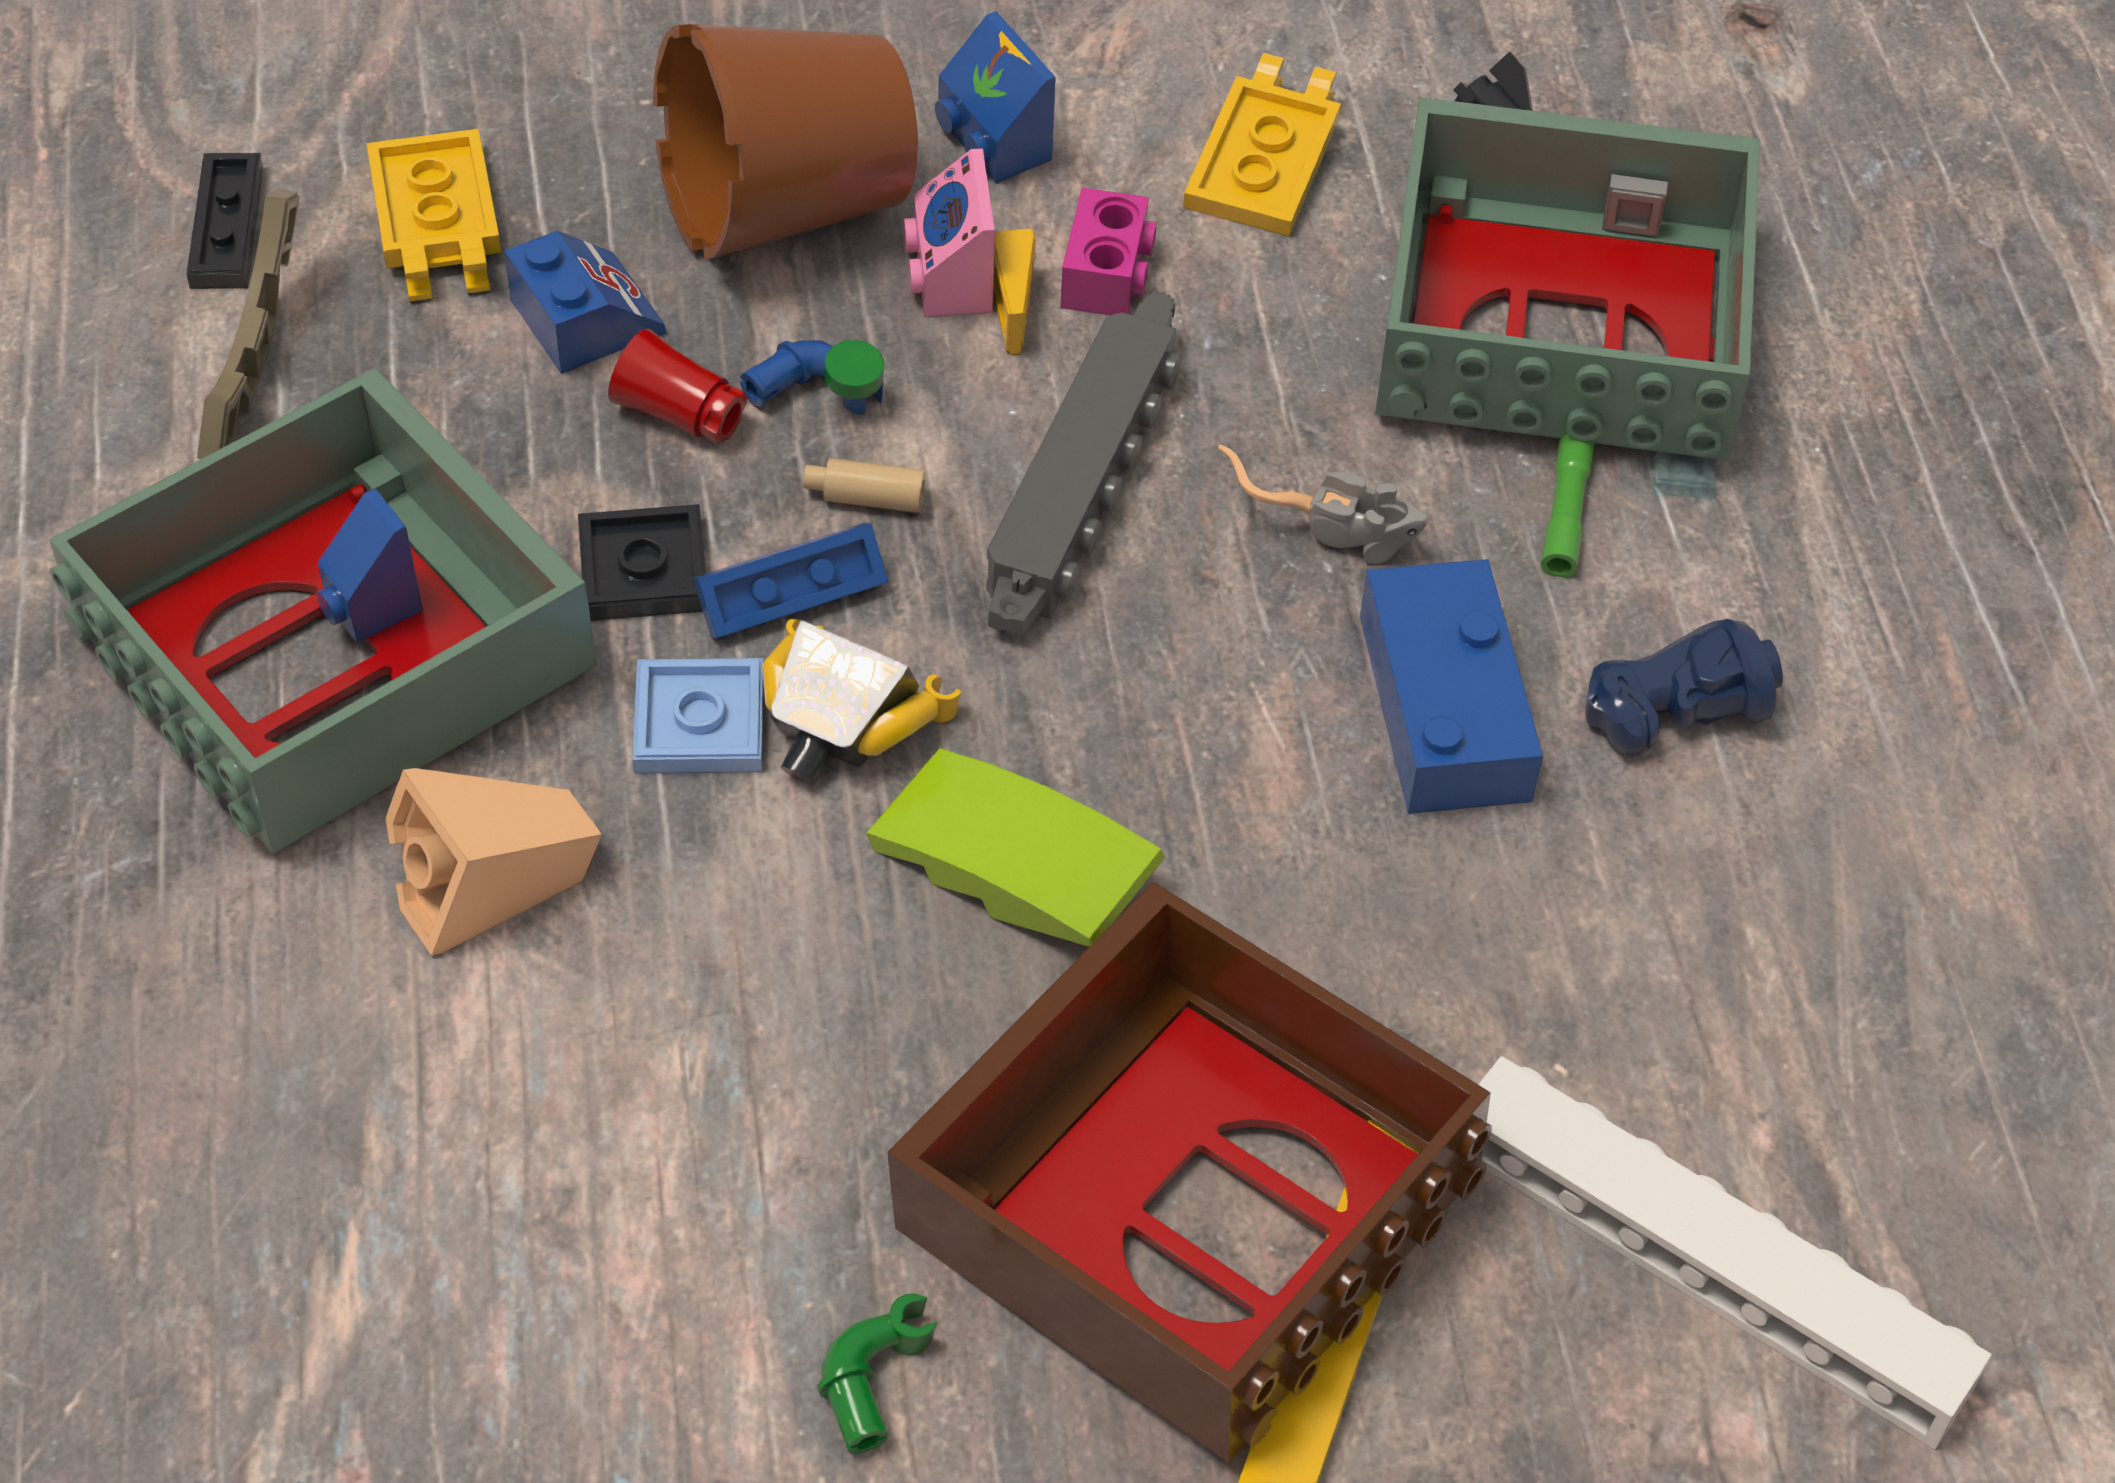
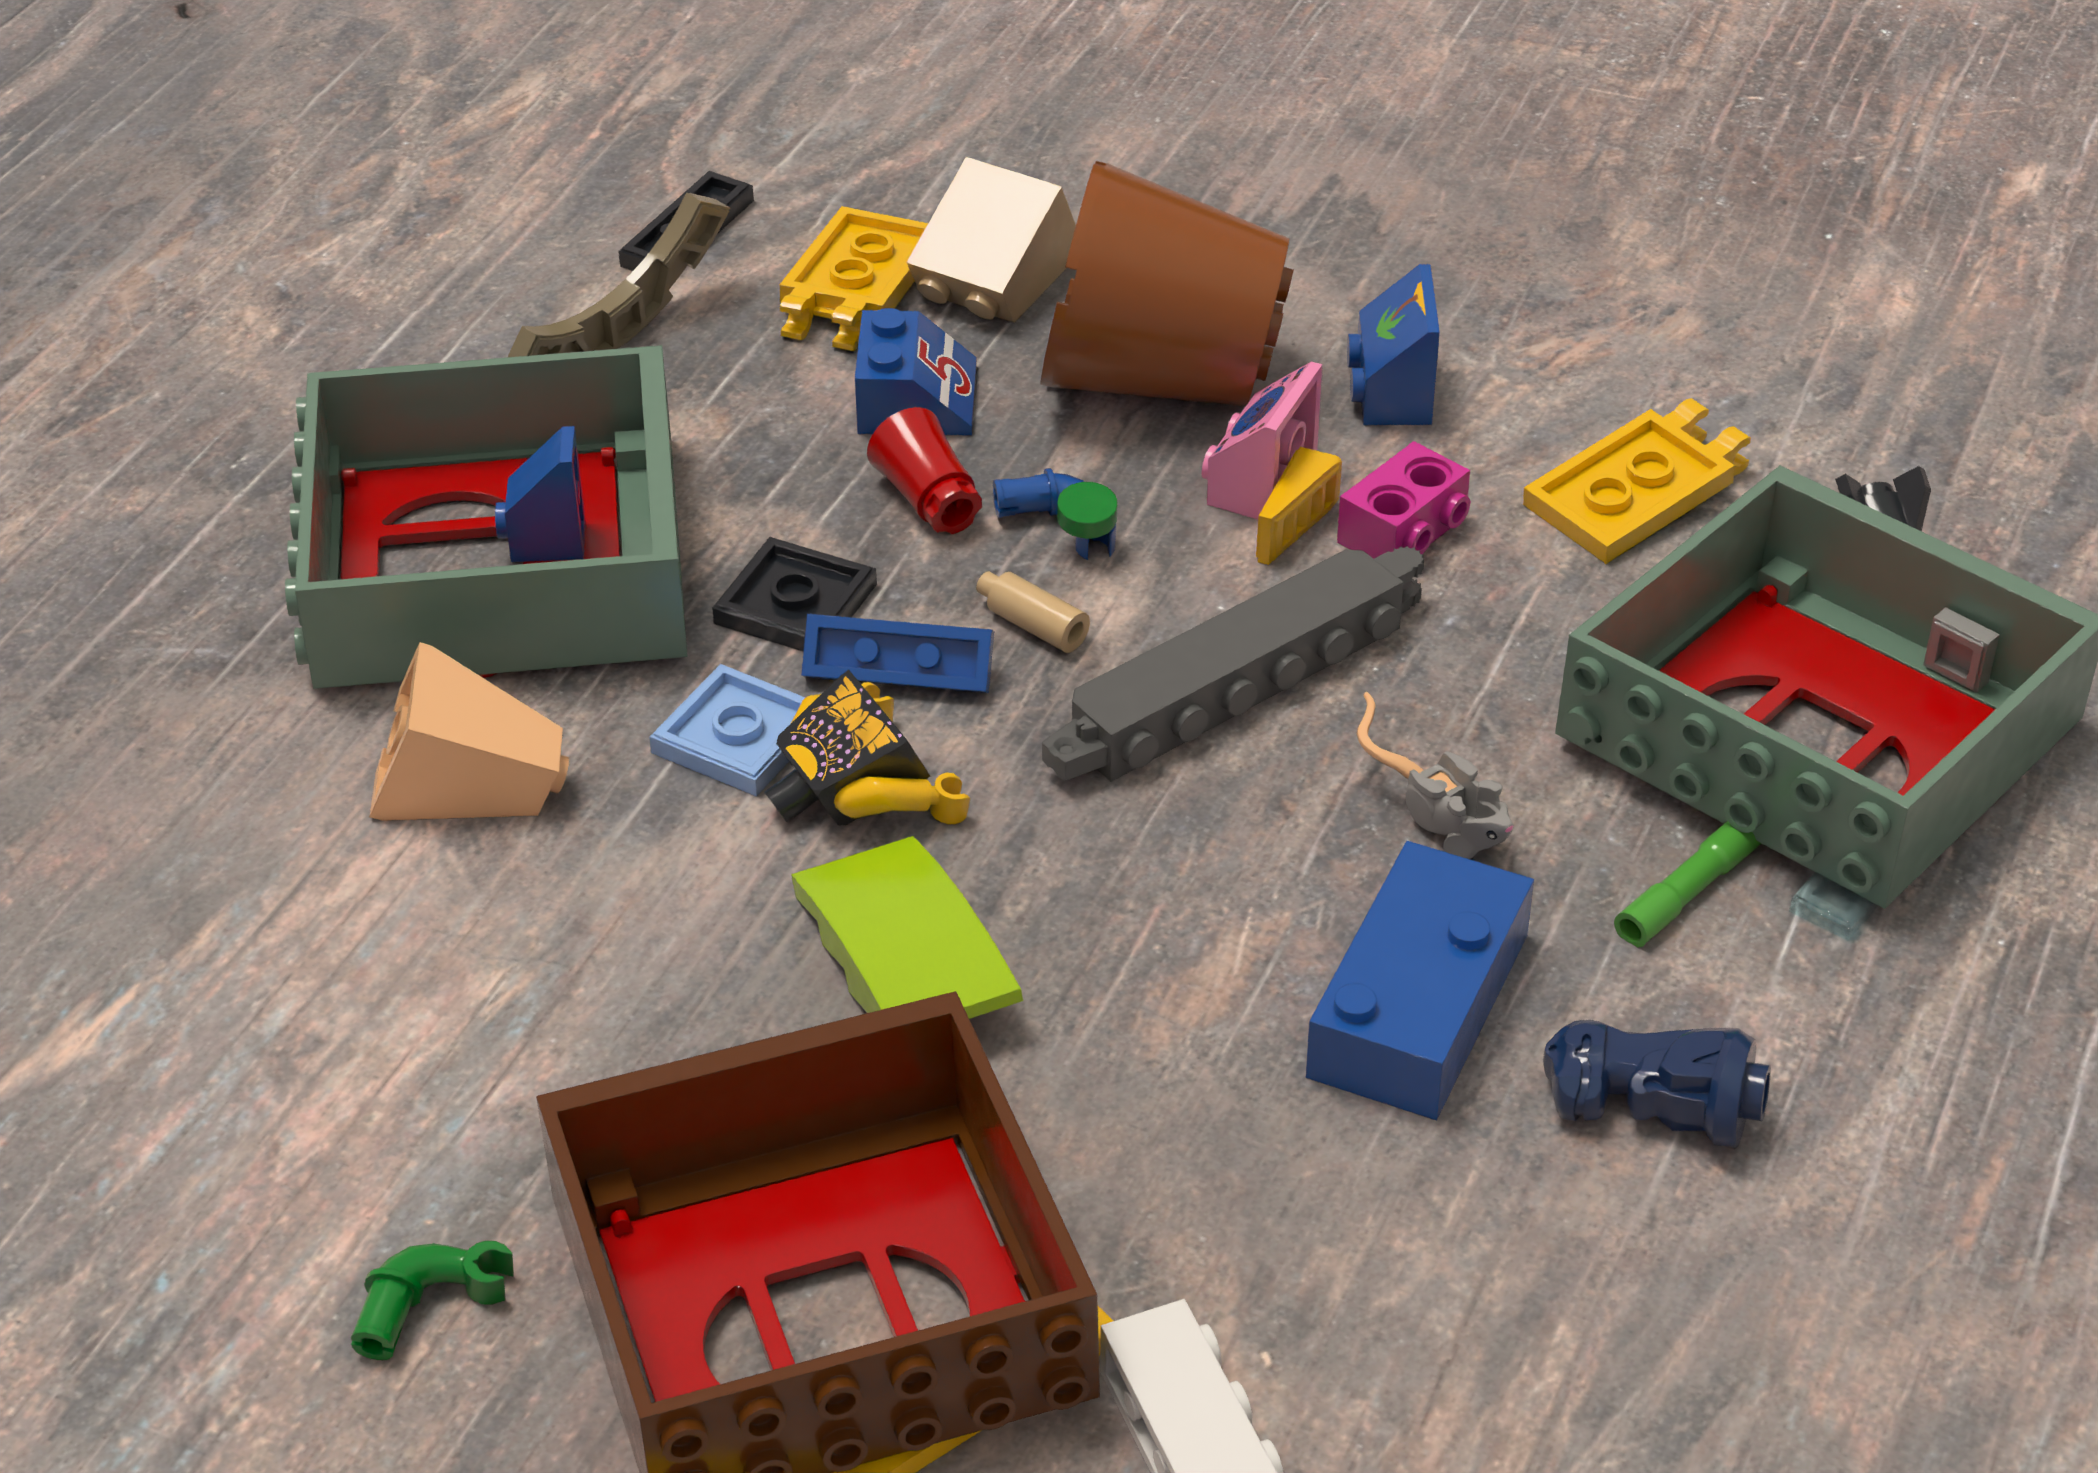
camera: 35 degrees right, 10 degrees down
(554, 129) = (993, 242): none -> slope

